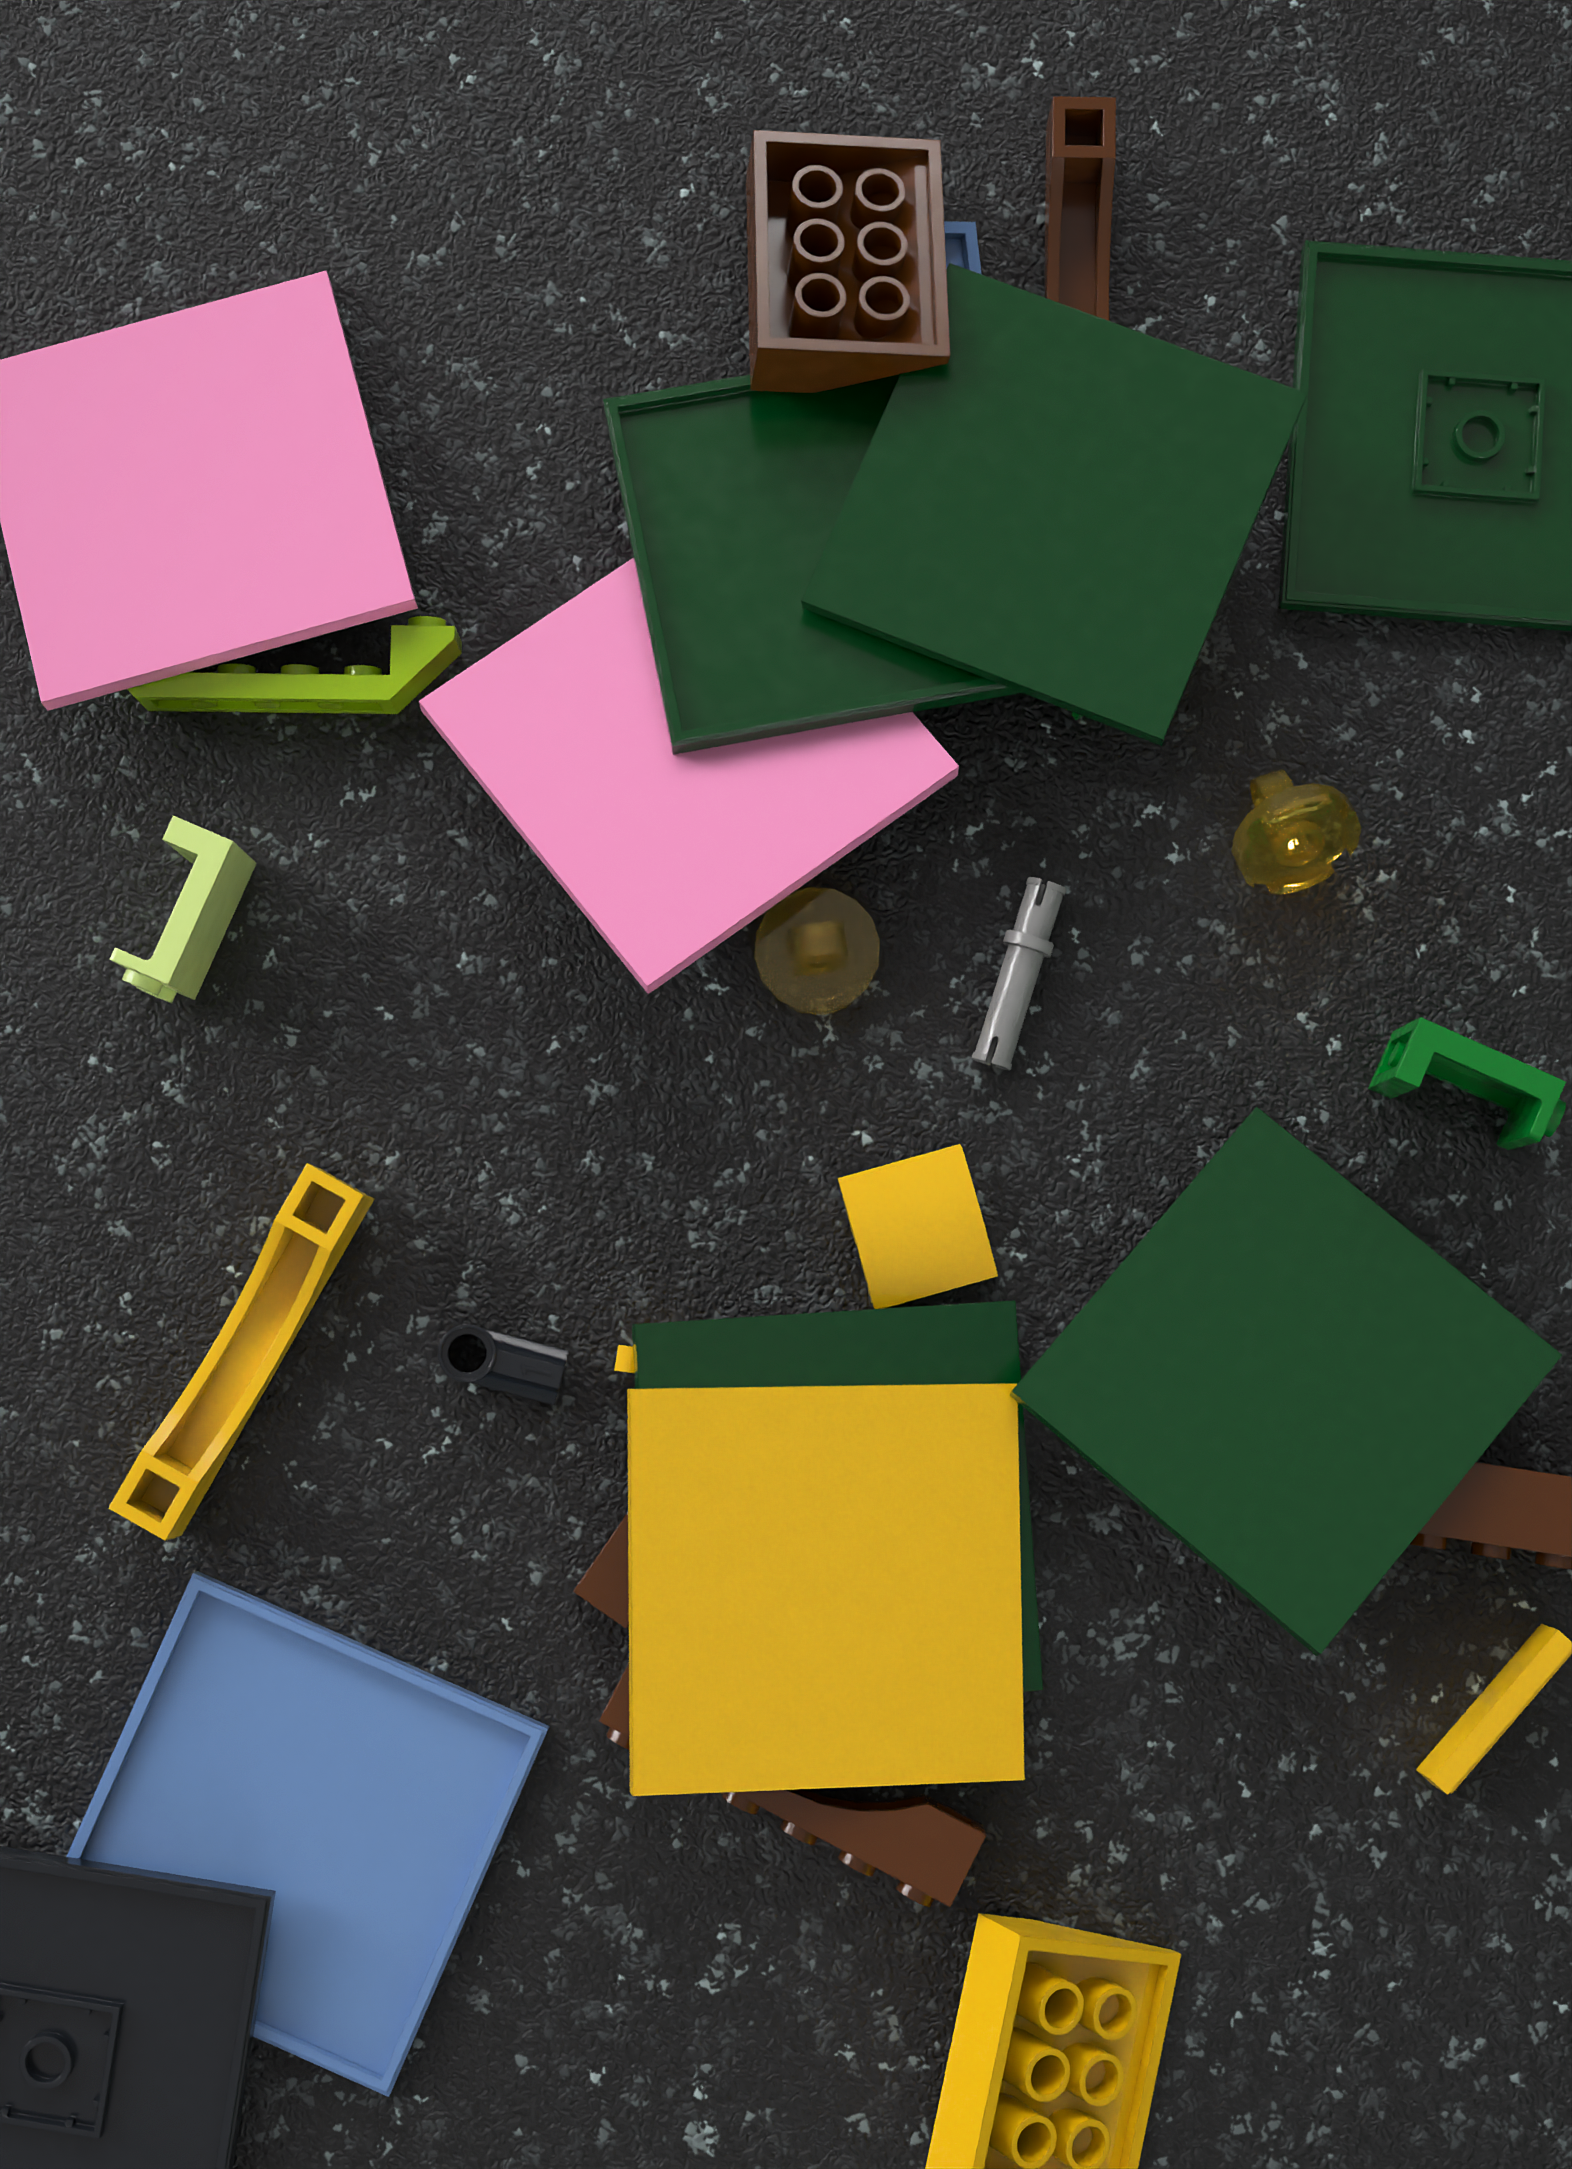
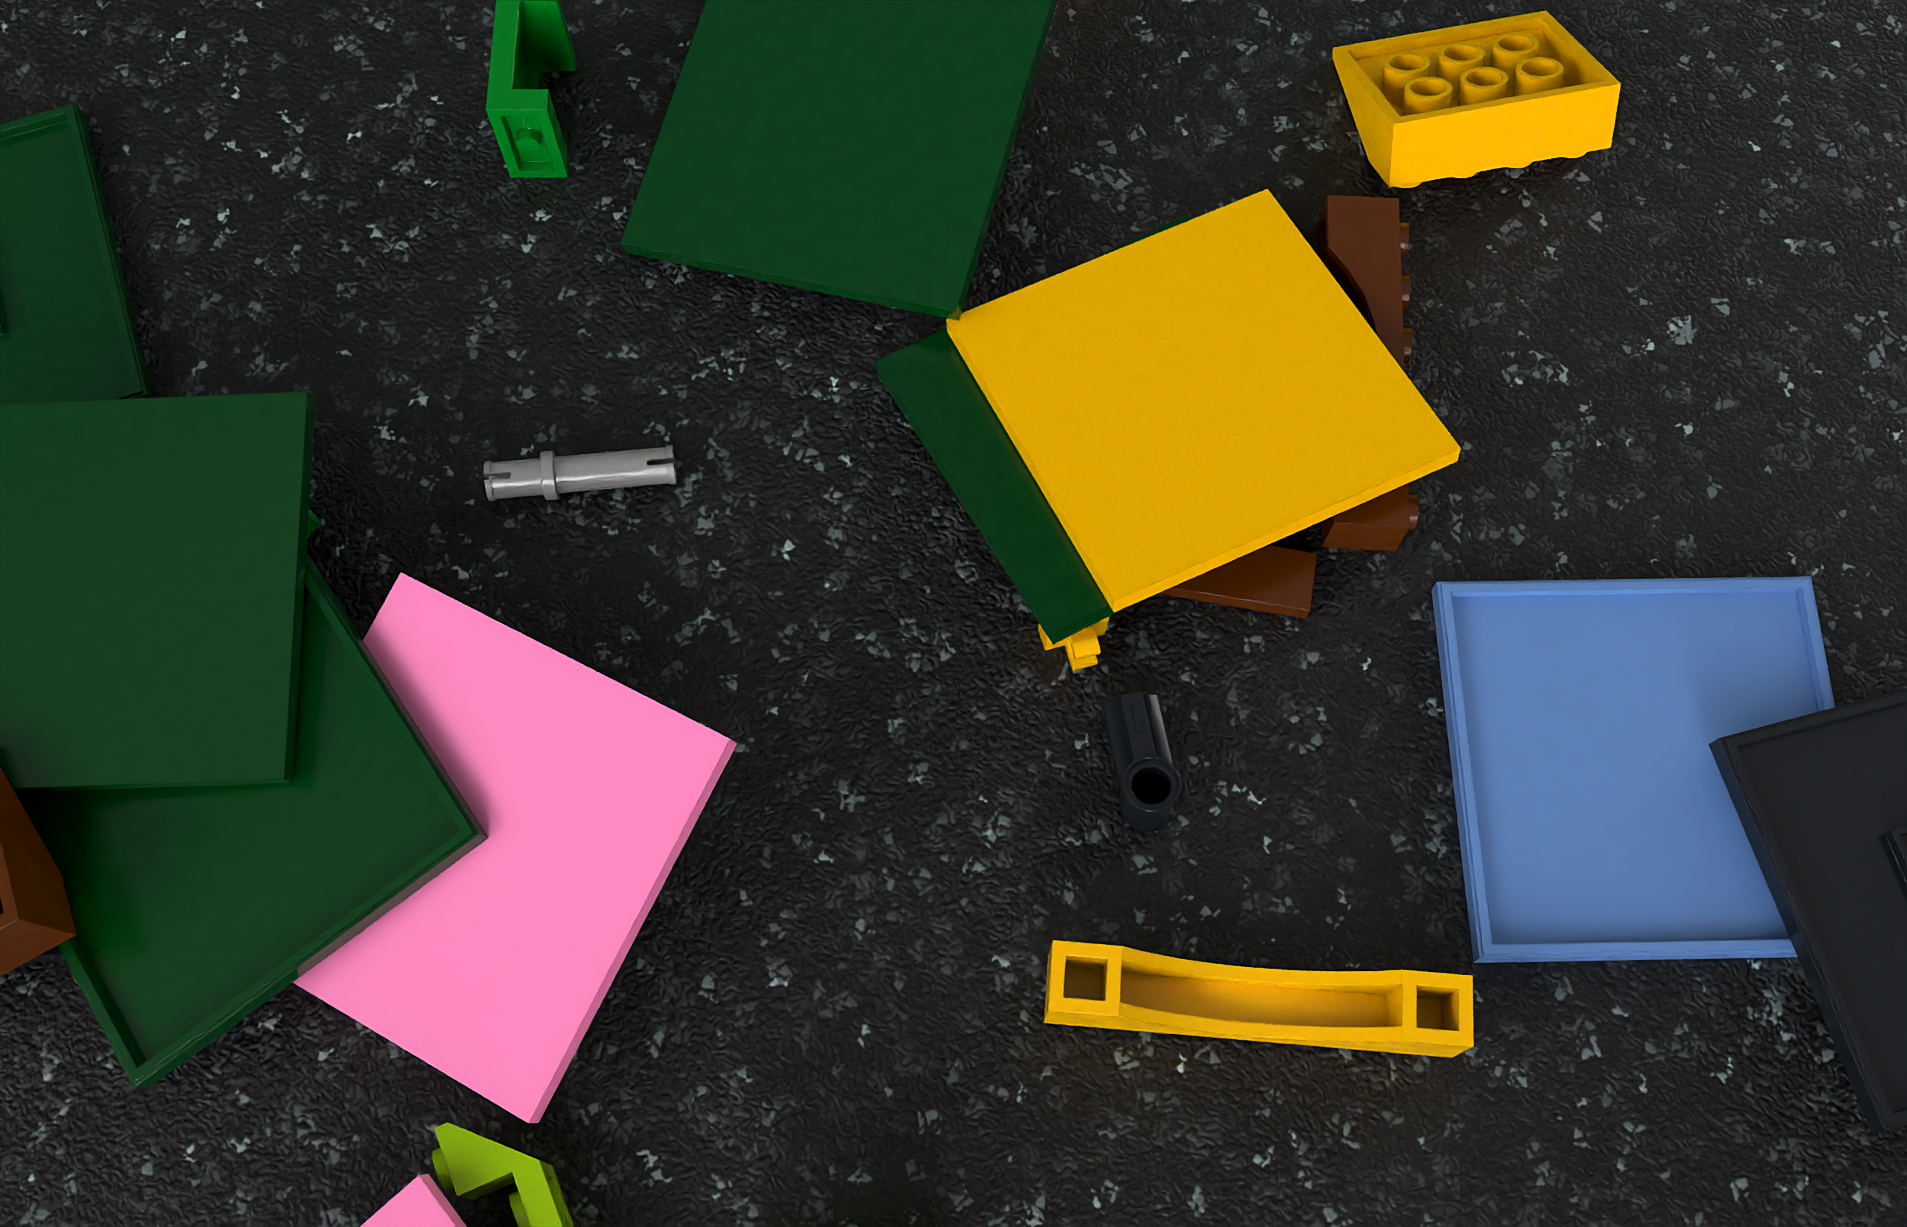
camera: 115 degrees left, 15 degrees down
(817, 950) = (636, 644): clear yellow tile -> none
(917, 1227) = (847, 464): yellow slope -> none
(1293, 833) = (356, 299): clear yellow tile -> none

